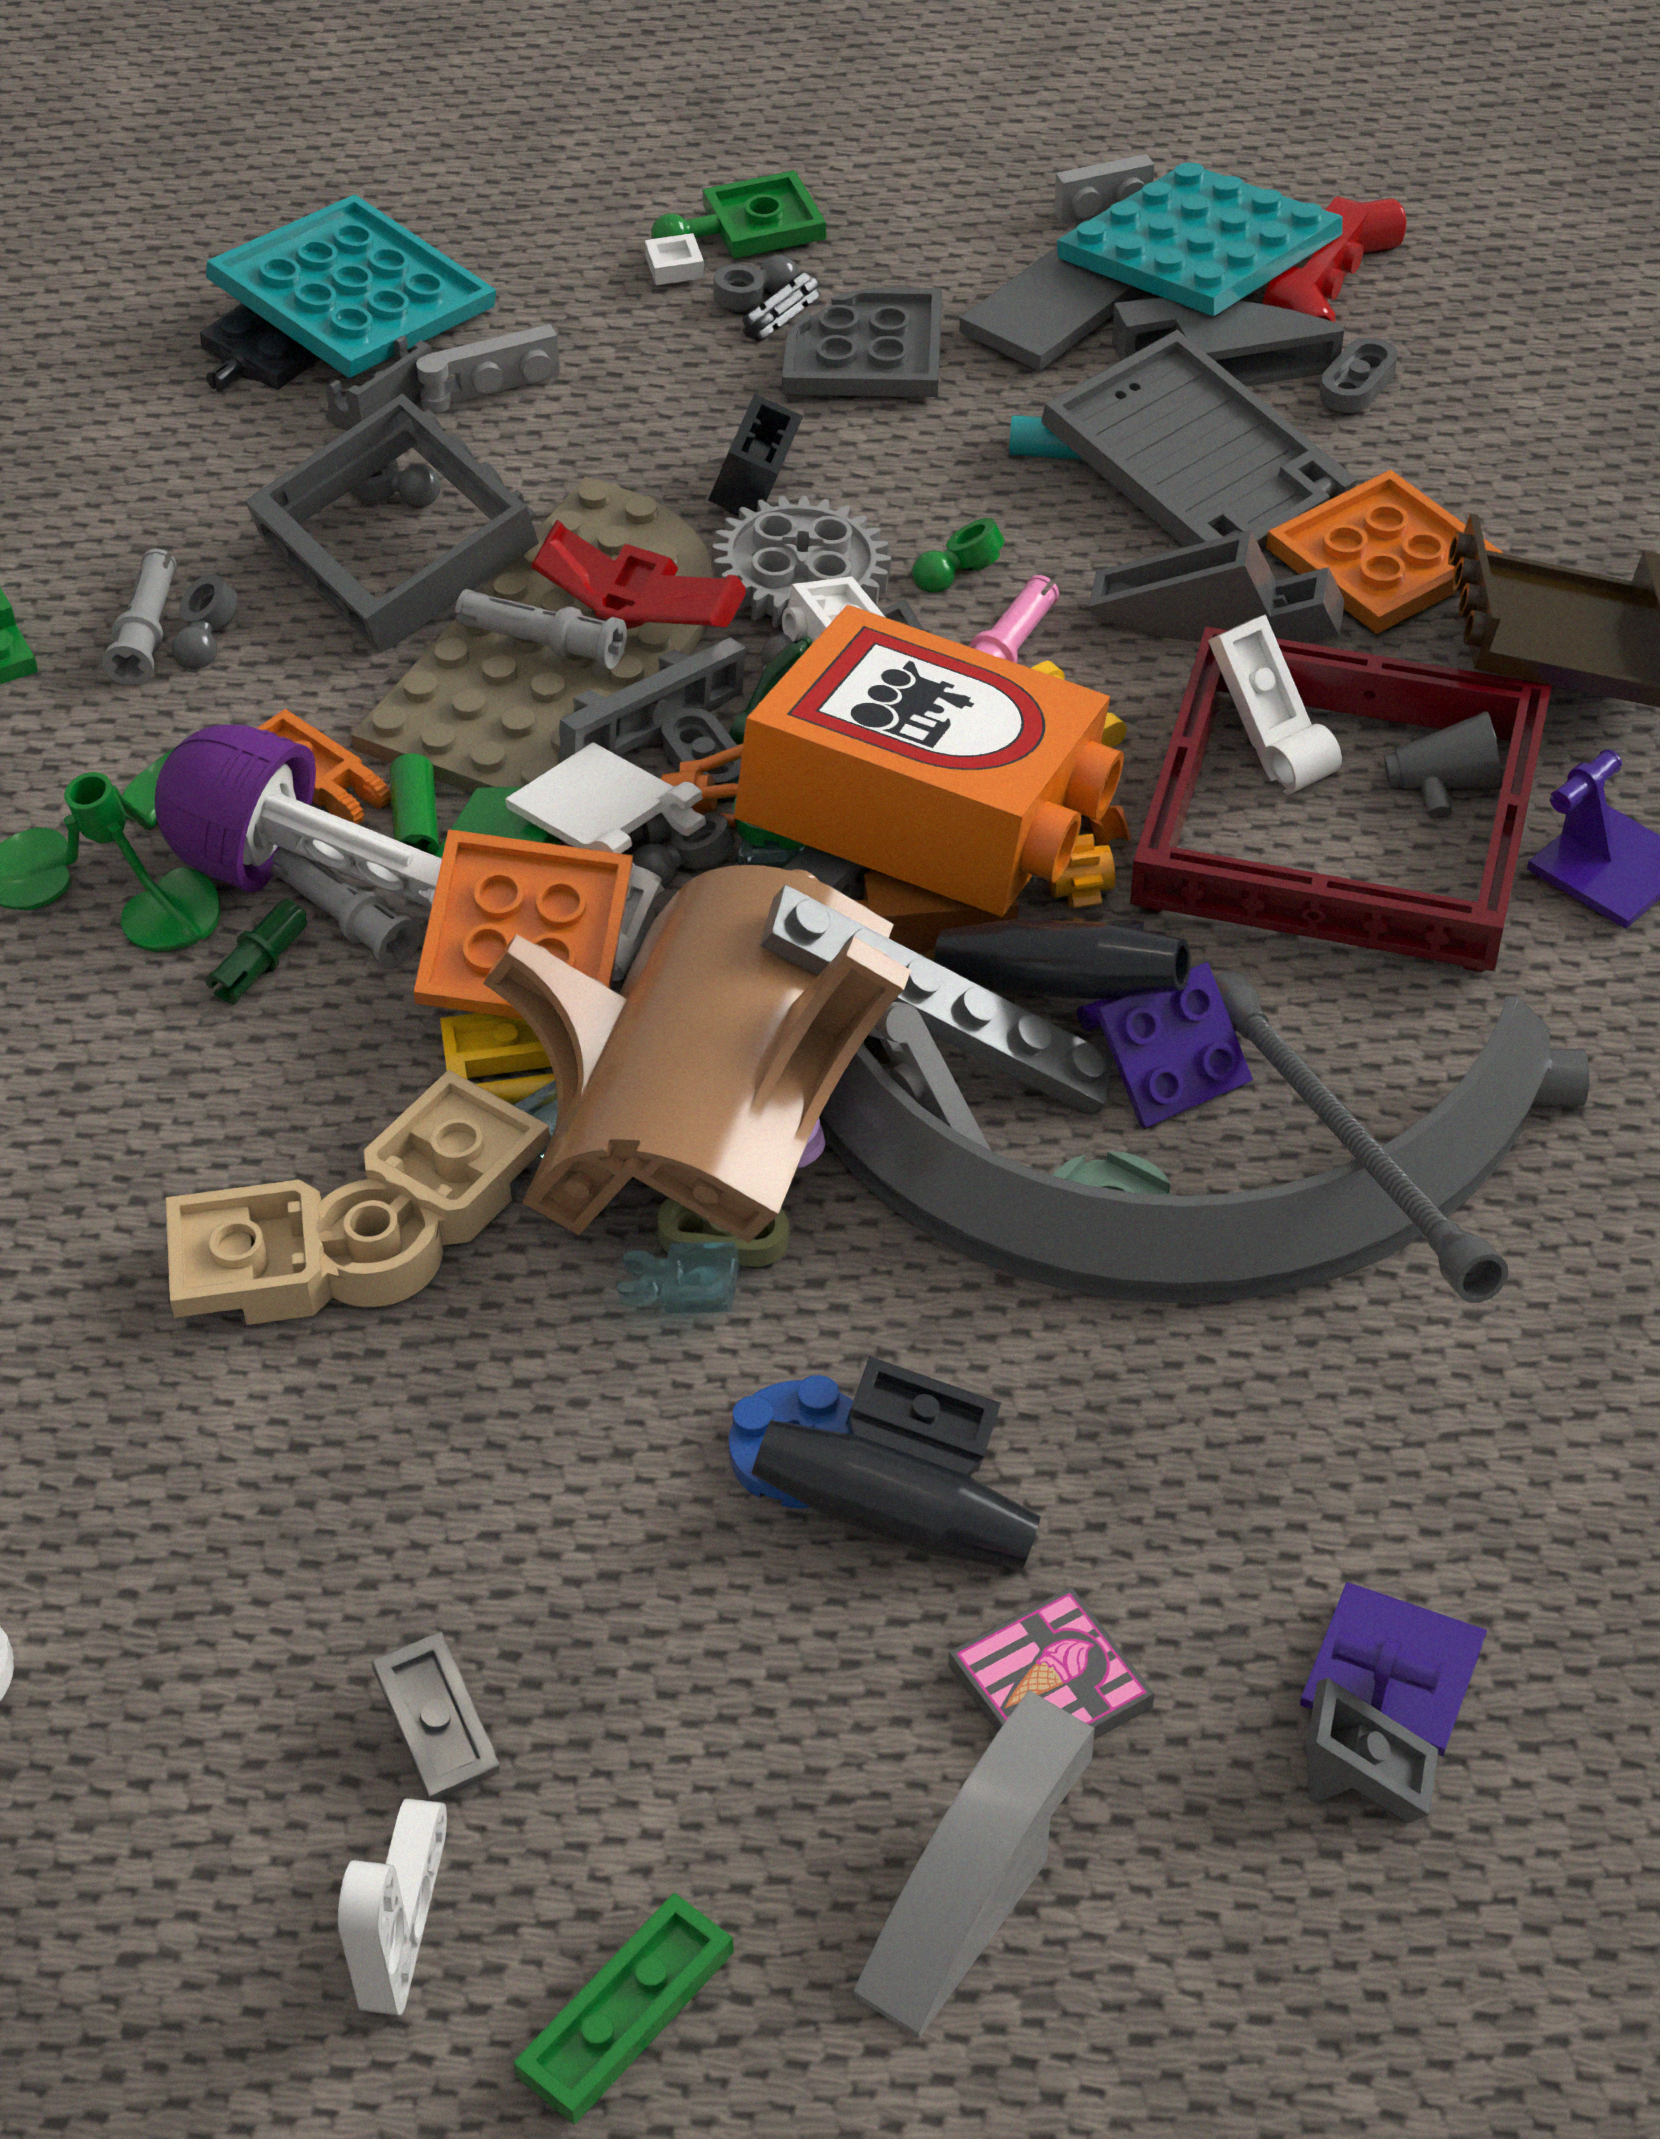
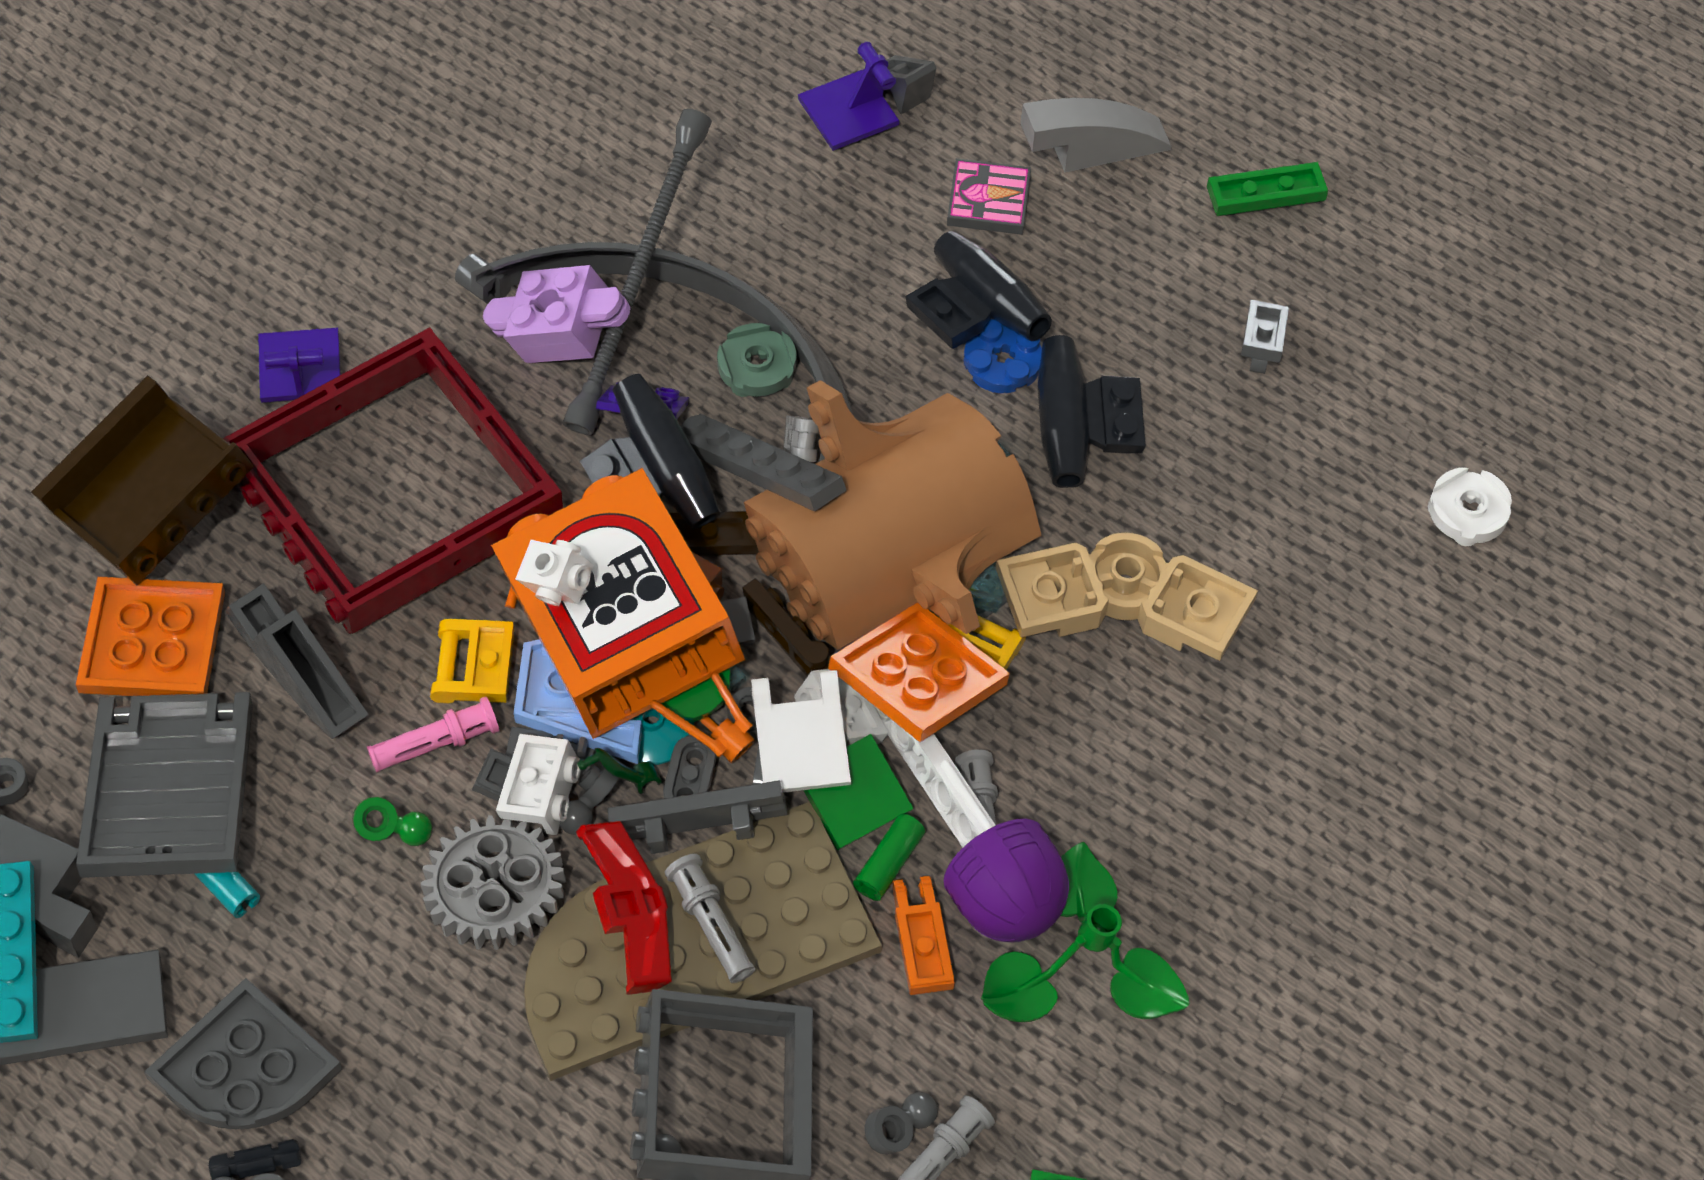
camera: 145 degrees left, 10 degrees up
(257, 951) = (1059, 812): dark green axle -> none
(387, 1908) = (1353, 255): white beam -> none
(620, 1412) = (1081, 413): none -> black plate
(755, 456) = (440, 980): black brick -> none
(983, 649) = (555, 572): none -> white brick
(1272, 707) = (368, 547): white plate -> none
(1383, 1052) = (557, 314): none -> lavender brick
(1448, 759) = (301, 469): dark grey piece -> none

